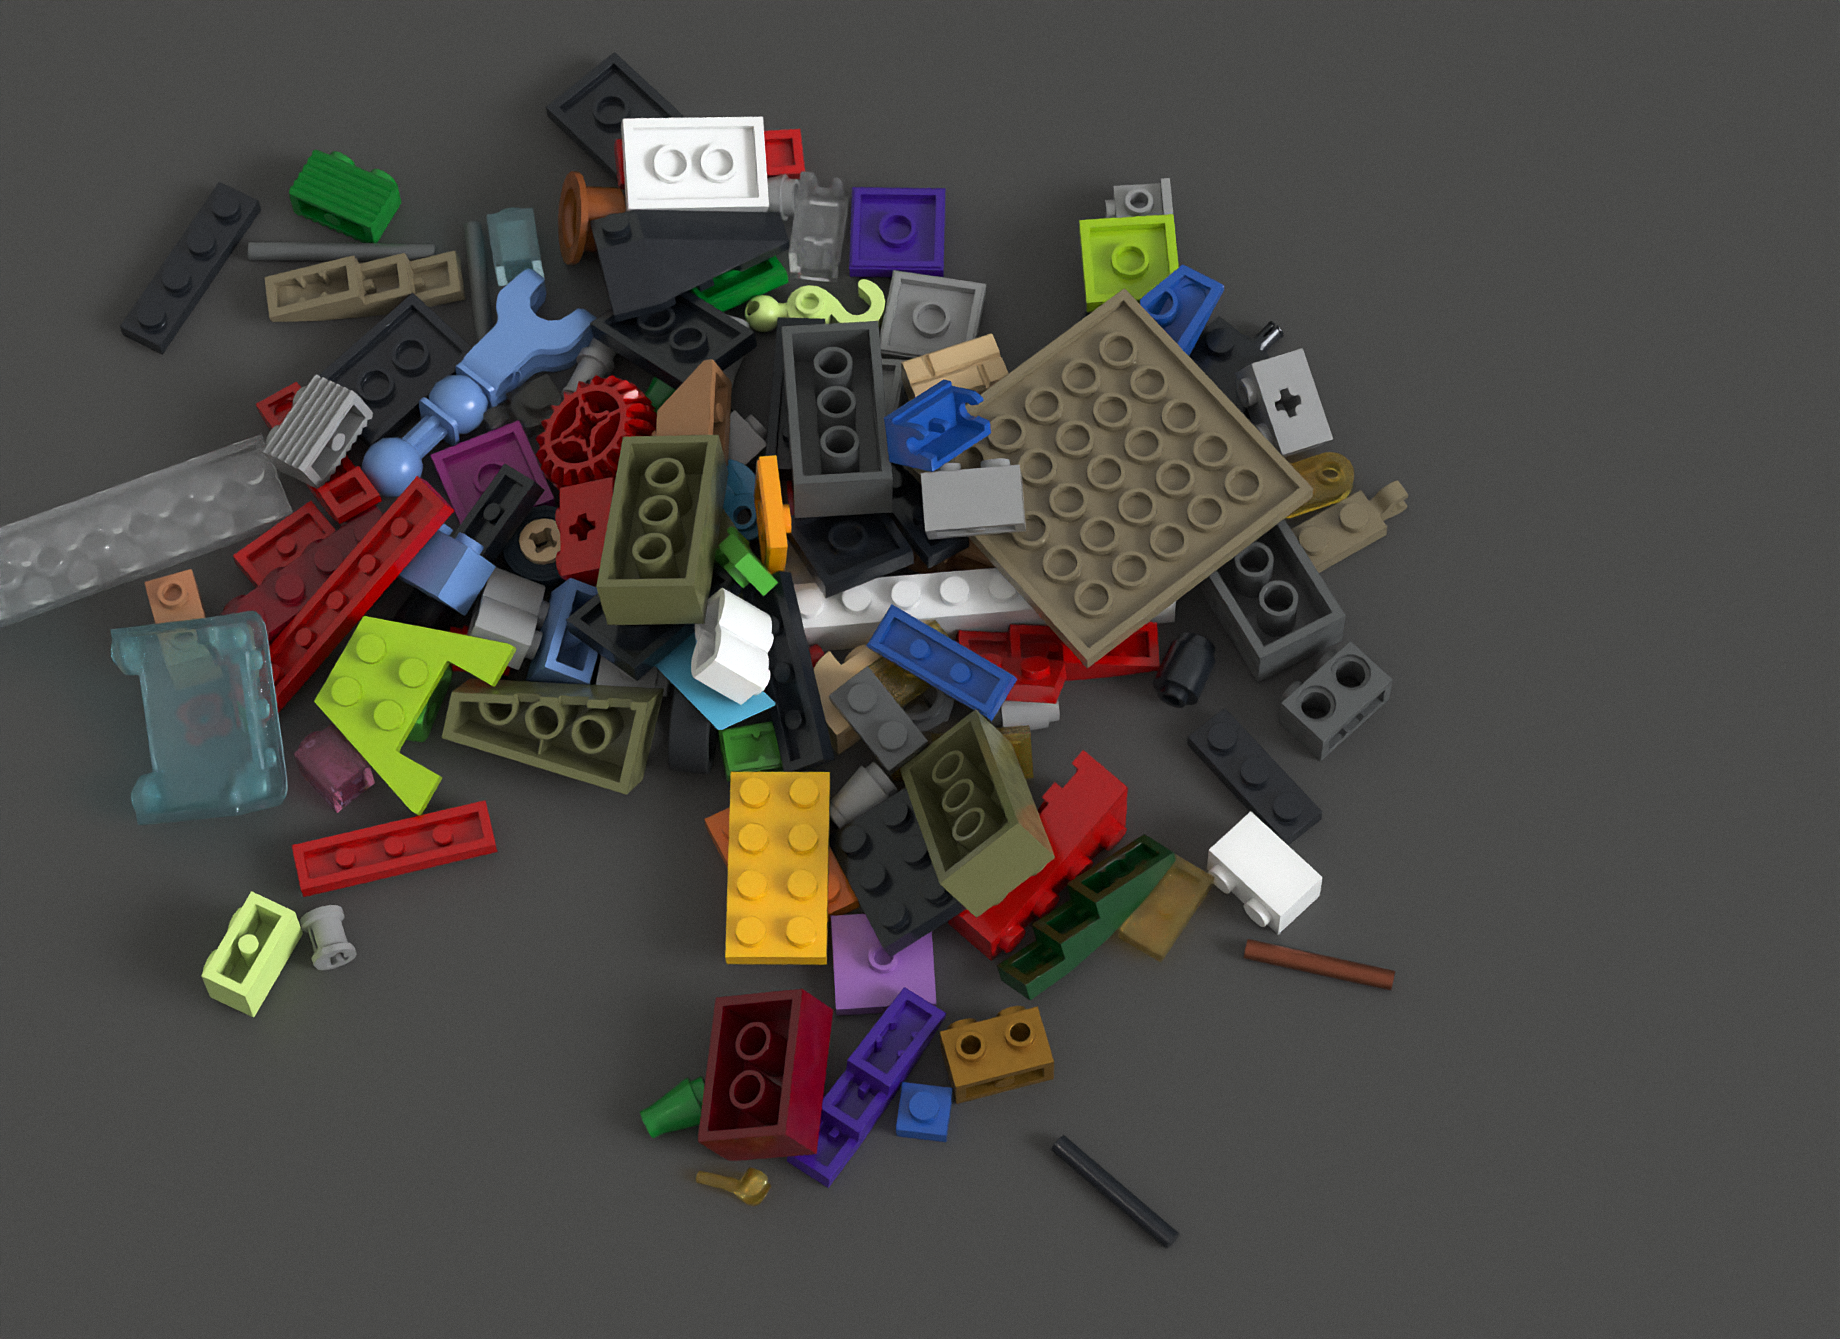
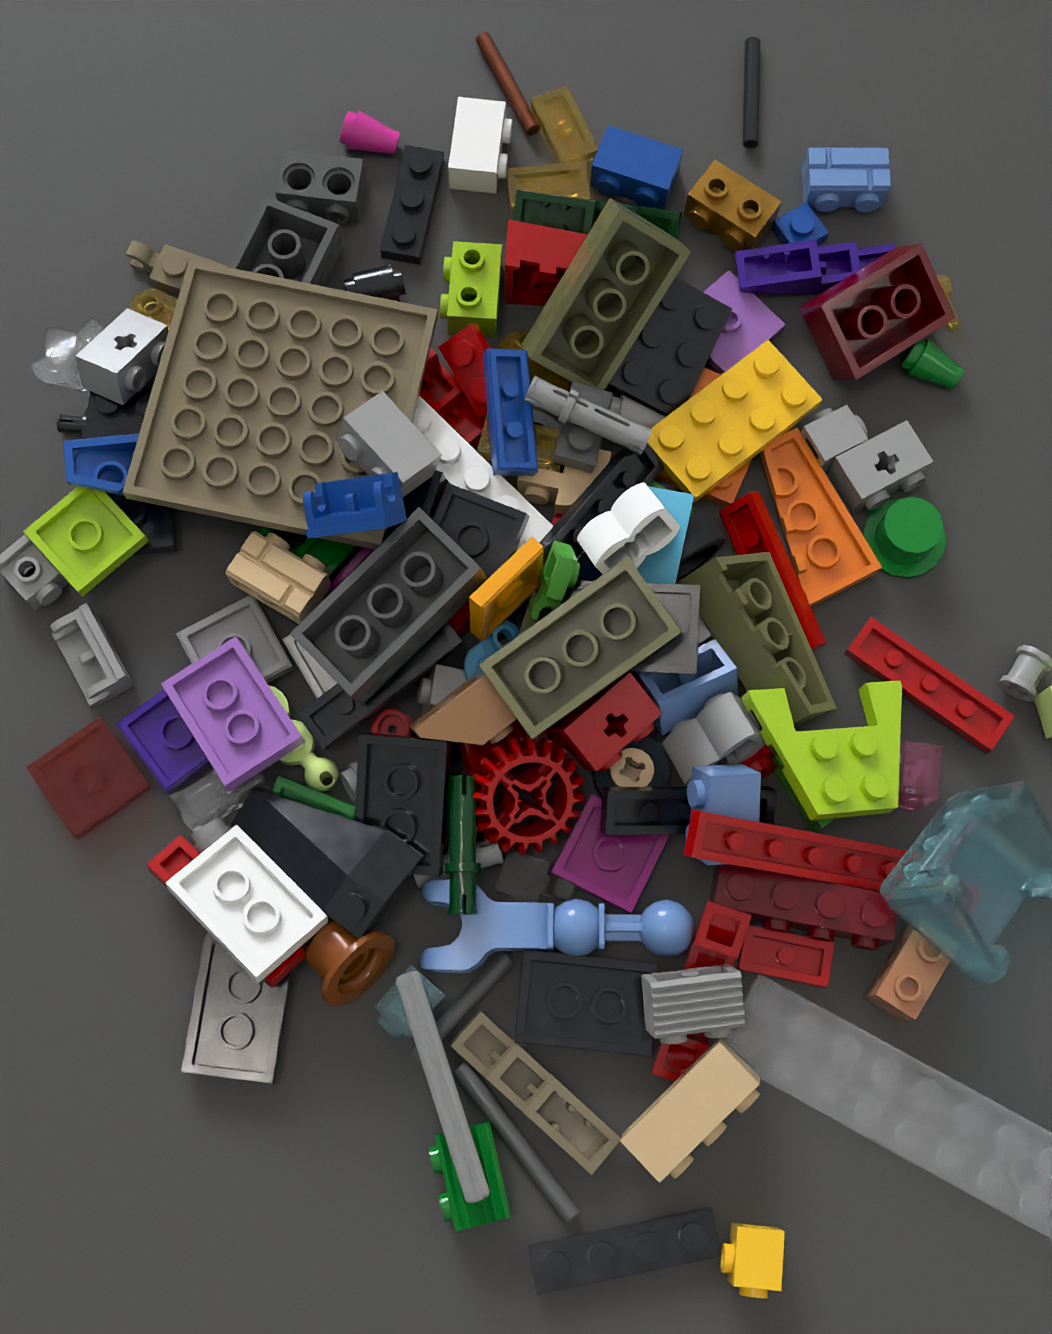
camera: 135 degrees left, 10 degrees up
(96, 346) = (754, 1259): none -> yellow brick
(239, 376) = (692, 1111): none -> tan brick
(427, 206) = (442, 1087): none -> light grey axle
(542, 951) = (906, 536): none -> green piece
(580, 341) = (462, 846): none -> dark green pin
(607, 873) = (817, 527): none -> orange wing
(623, 999) = (894, 450): none -> light grey brick
(645, 806) = (754, 532): none -> red plate
(686, 953) = (833, 434): none -> light grey brick
(752, 384) = (389, 718): none -> red plate
(865, 264) = (232, 713): none -> medium lavender plate
(918, 143) = (88, 778): none -> clear red plate
(926, 681) = (581, 412): none -> light grey pin
(936, 1189) = (846, 178): none -> medium blue brick
(1024, 216) = (91, 655): none -> light grey hinge
(1115, 999) = (635, 168): none -> blue brick
(1116, 746) = (473, 287): none -> lime brick
(1219, 971) = (564, 126): none -> clear yellow plate
(1342, 380) = (61, 347): none -> clear plate
(1362, 785) = (367, 134): none -> dark pink cone

